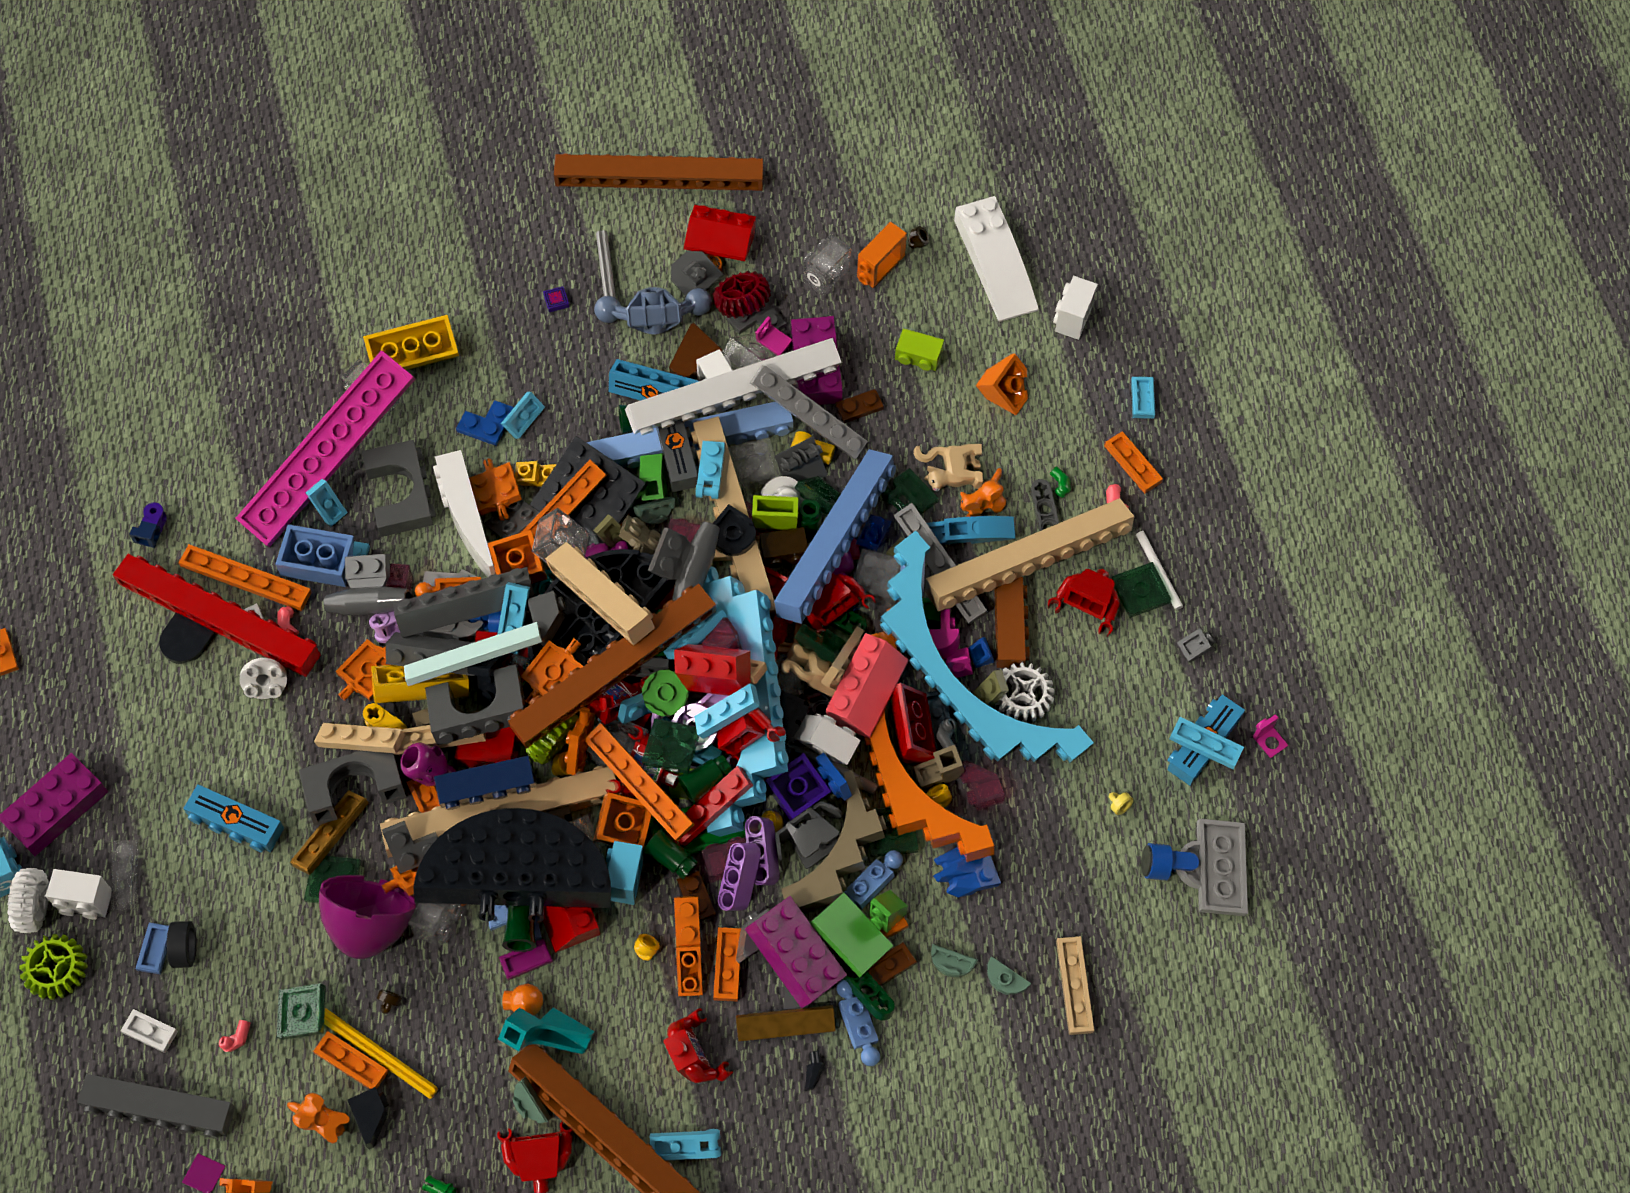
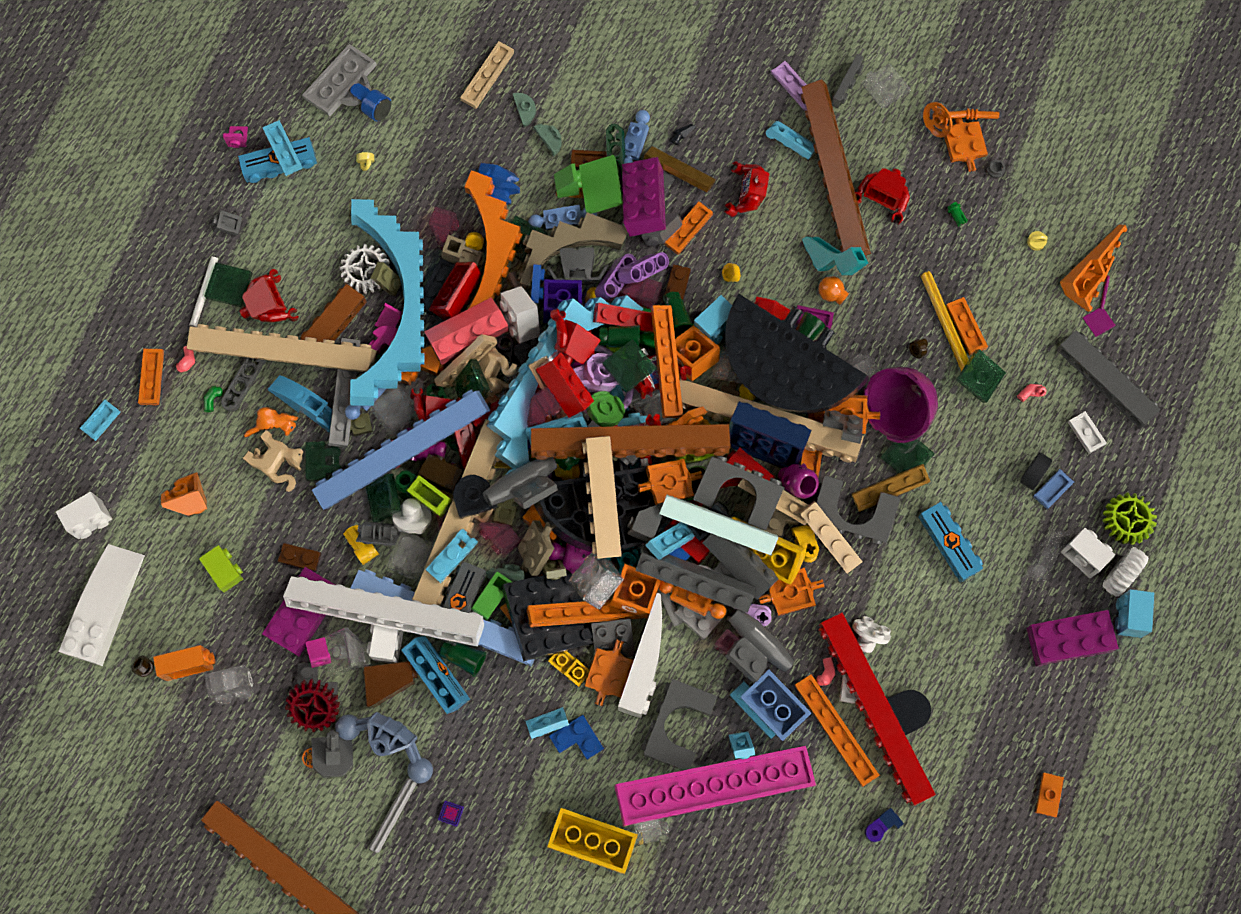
camera: 140 degrees left, 10 degrees up
(314, 1115) = (1011, 302): orange animal -> none
(369, 1114) = (974, 284): black slope -> none
(528, 1102) = (870, 227): sand green plate -> none
(688, 946) = (706, 252): orange slope -> none
(720, 232) = (286, 775): red slope -> none
(726, 711) = (579, 349): medium azure plate -> none
(808, 411) = (345, 560): light grey plate -> none
(874, 534) = (373, 437): clear blue slope -> none
(945, 732) = (440, 272): dark grey arm -> none
(981, 653) = (369, 316): blue slope -> none

